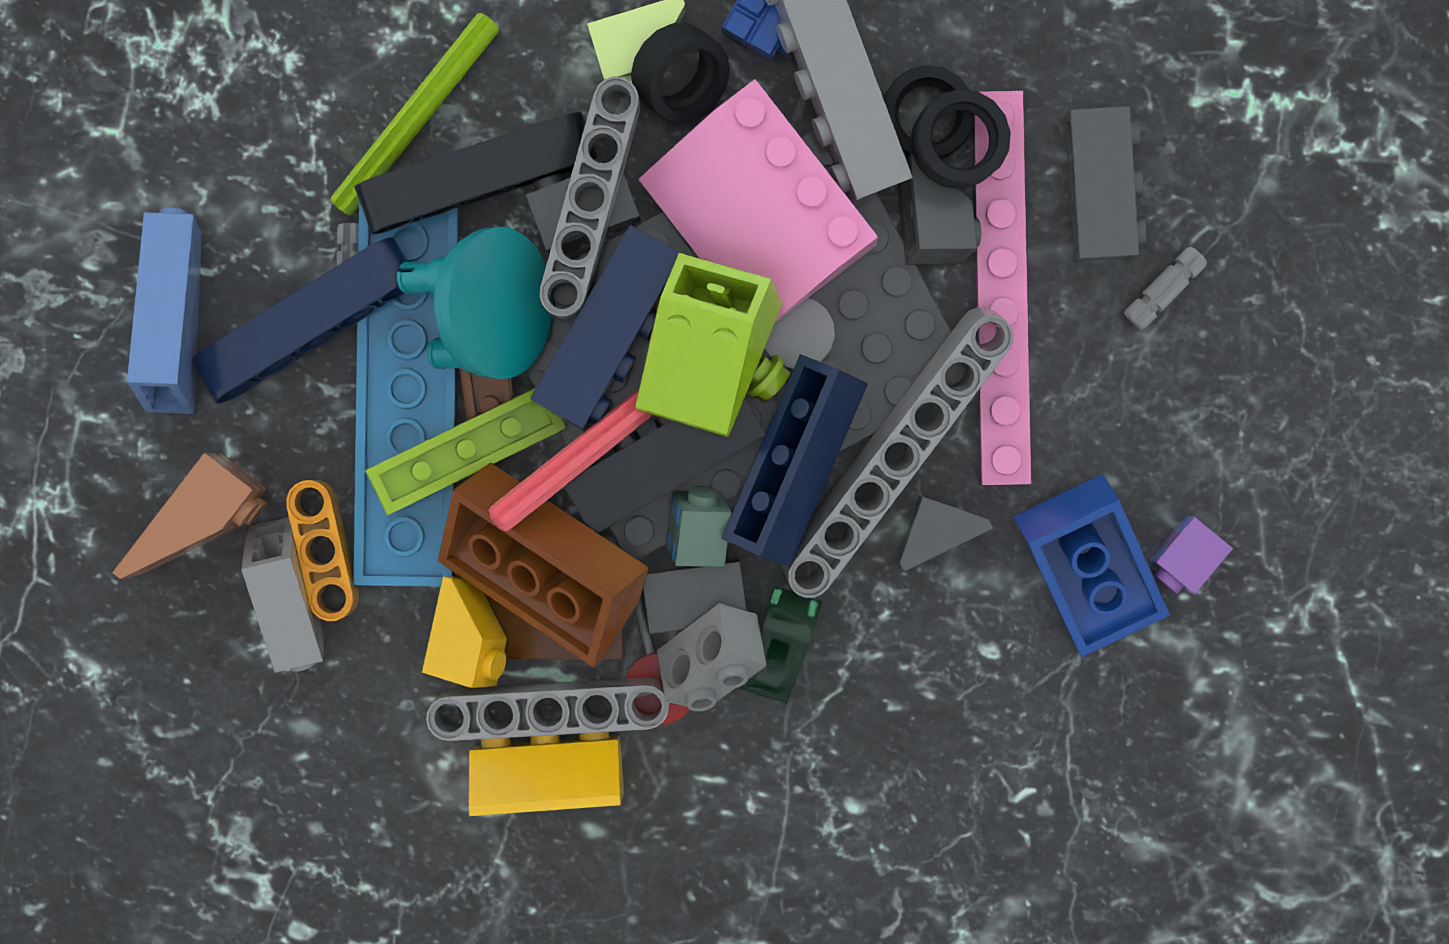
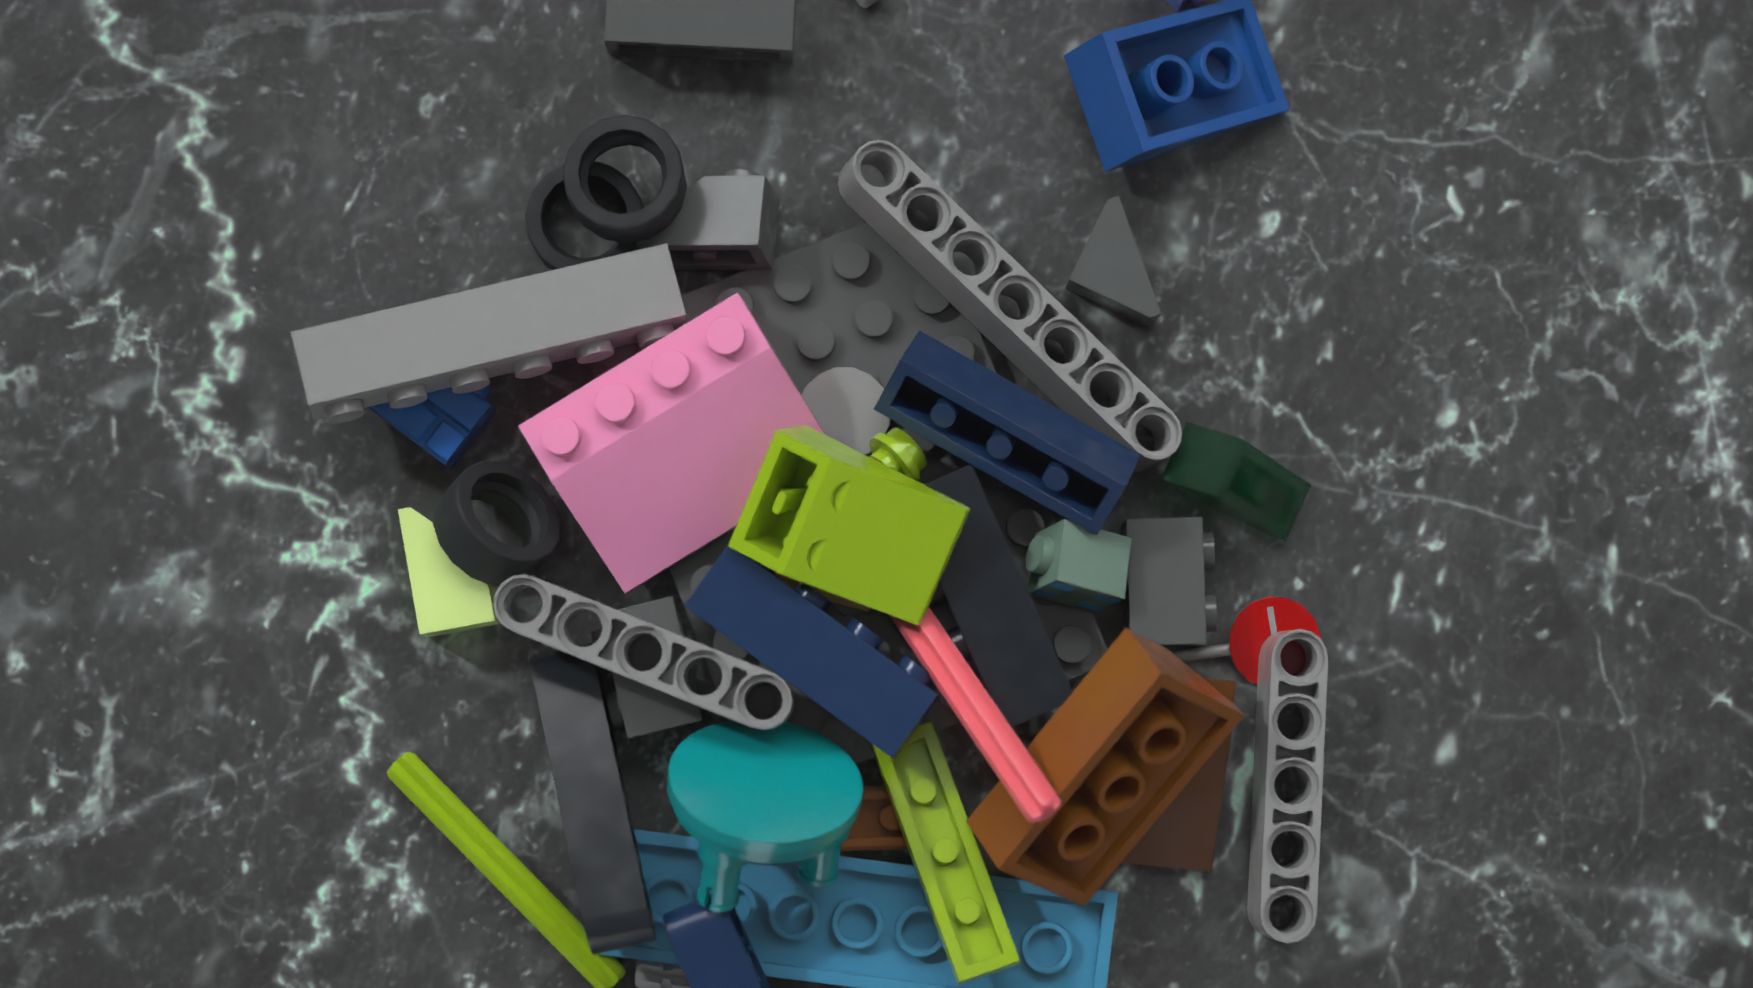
camera: 85 degrees left, 5 degrees down
(465, 637) = (1186, 881): yellow slope -> none
(545, 774) = (1372, 797): yellow slope -> none
(711, 657) = (1246, 567): light grey brick -> none
(1003, 288) = (816, 153): bright pink plate -> none

